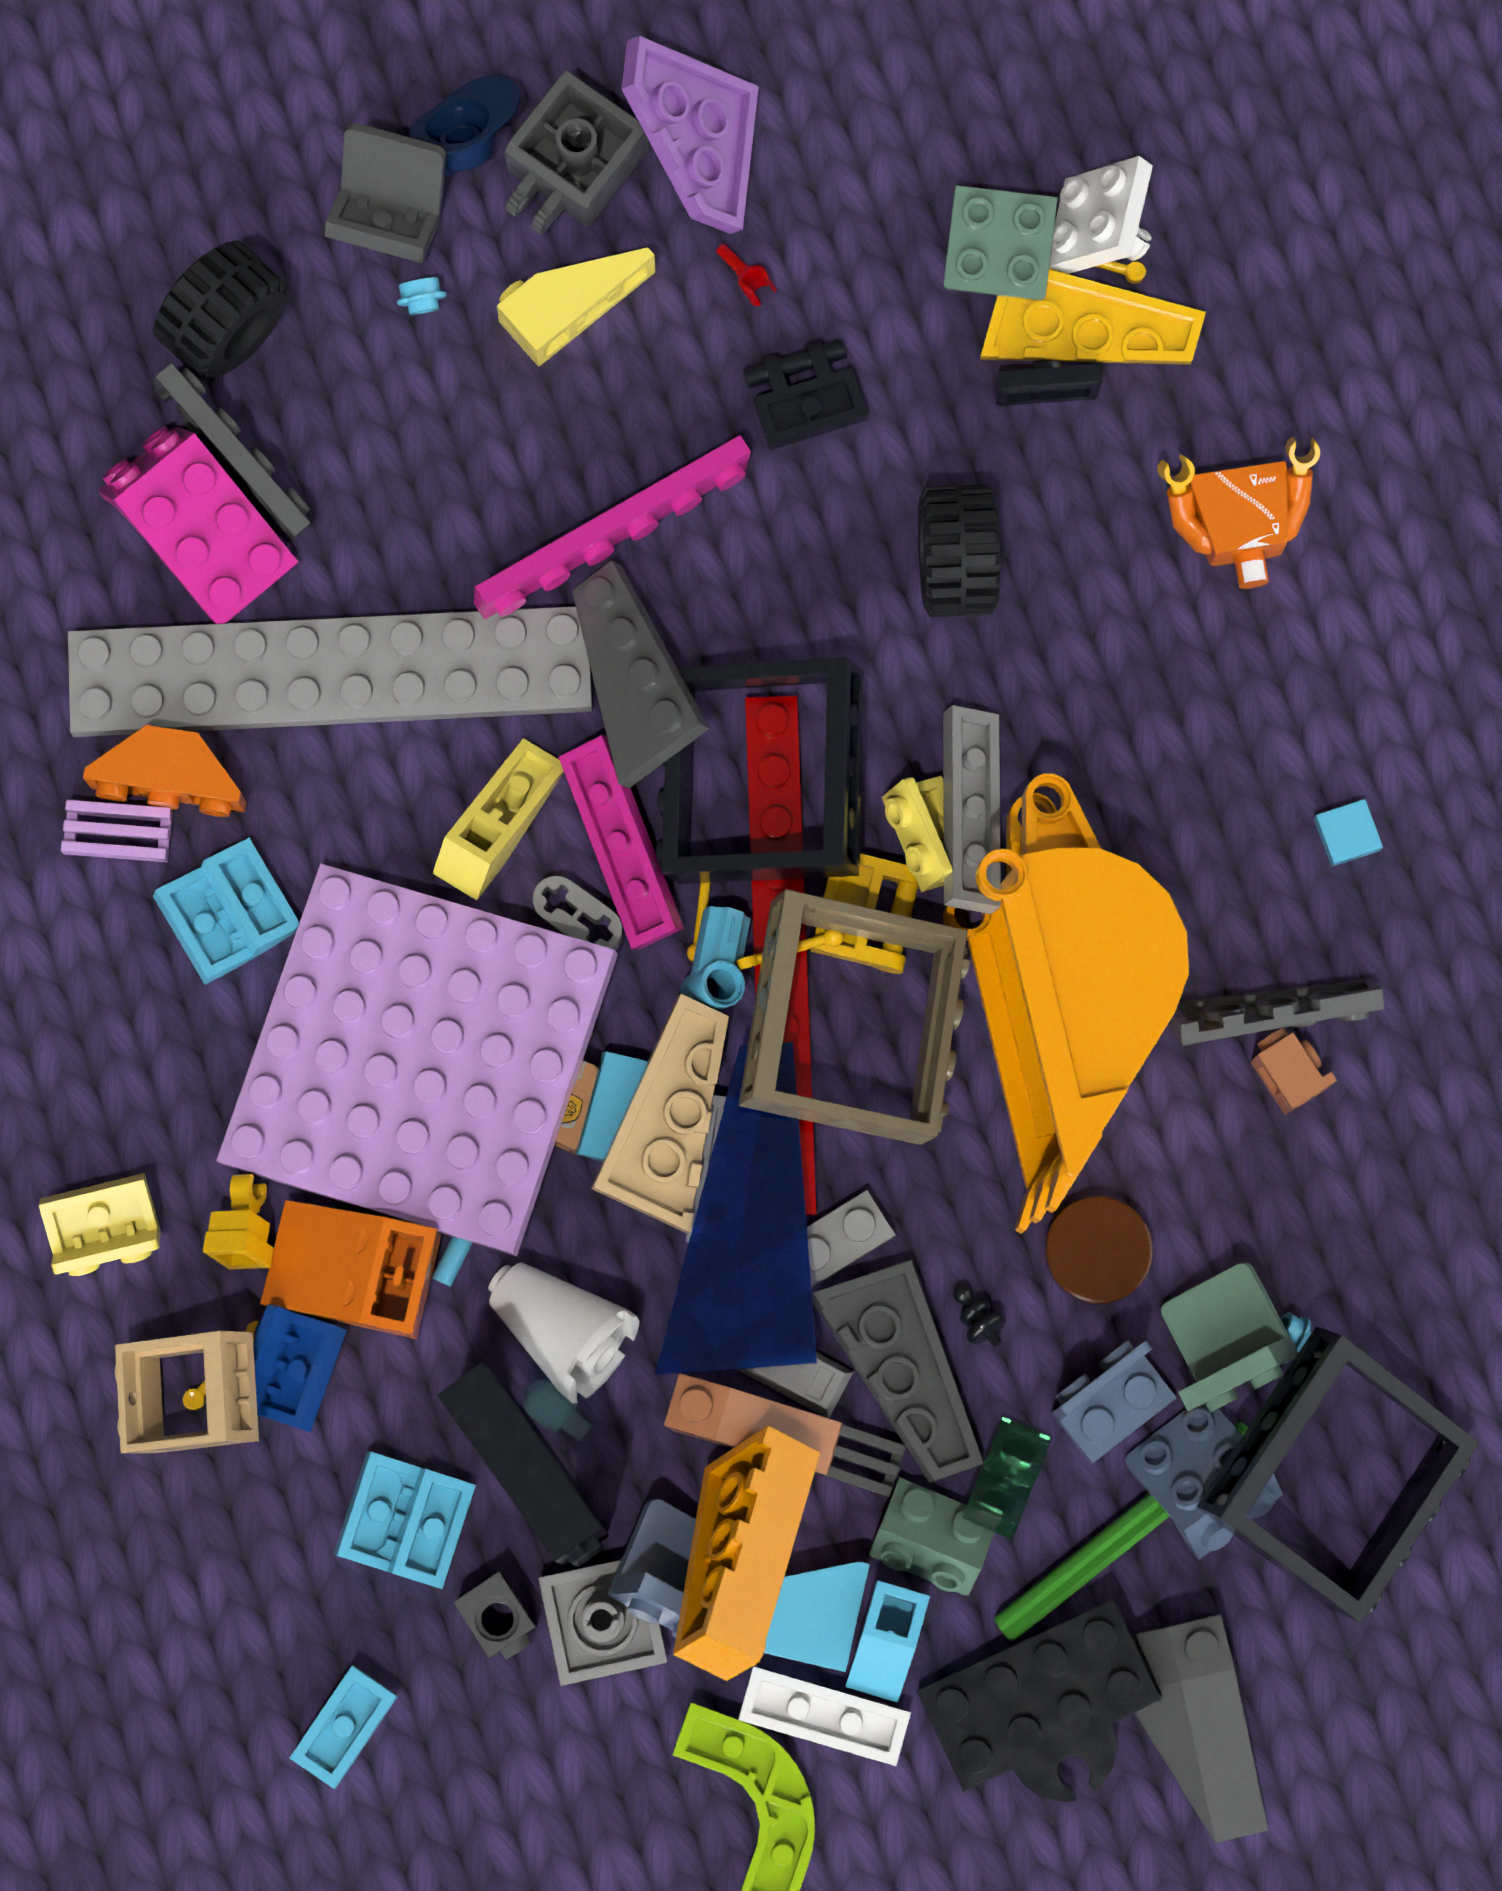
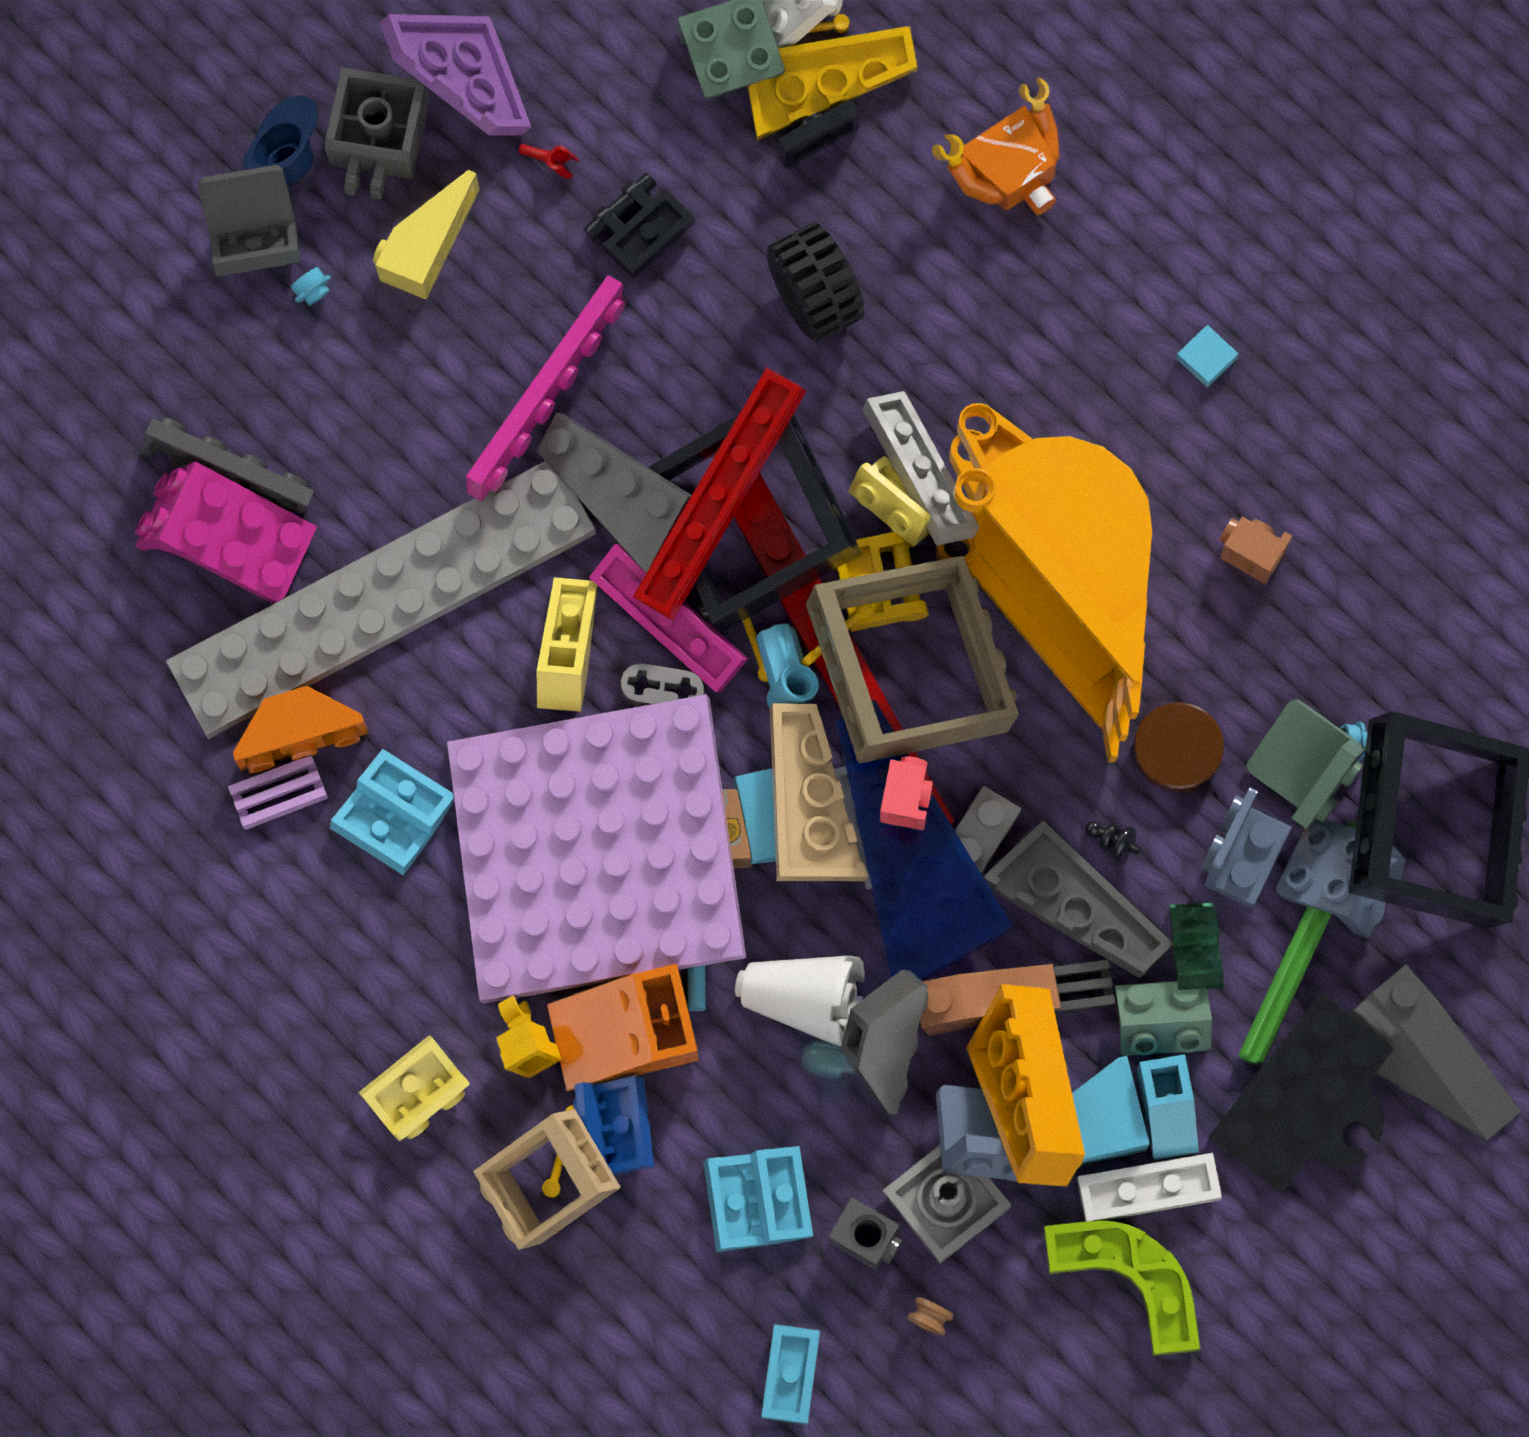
camera: 20 degrees left, 5 degrees down
(221, 310) = (167, 364): black tyre -> none
(521, 1738) = (930, 1316): none -> medium nougat bush
(524, 1466) = (835, 1102): black window -> none
(618, 1417) = (884, 1037): none -> dark grey slope
(736, 737) = (719, 493): none -> red tile
(772, 1164) = (905, 793): none -> coral brick
(812, 1386) = (1012, 950): light grey tile -> none
(1273, 1009) = (1228, 502): dark grey wing -> none

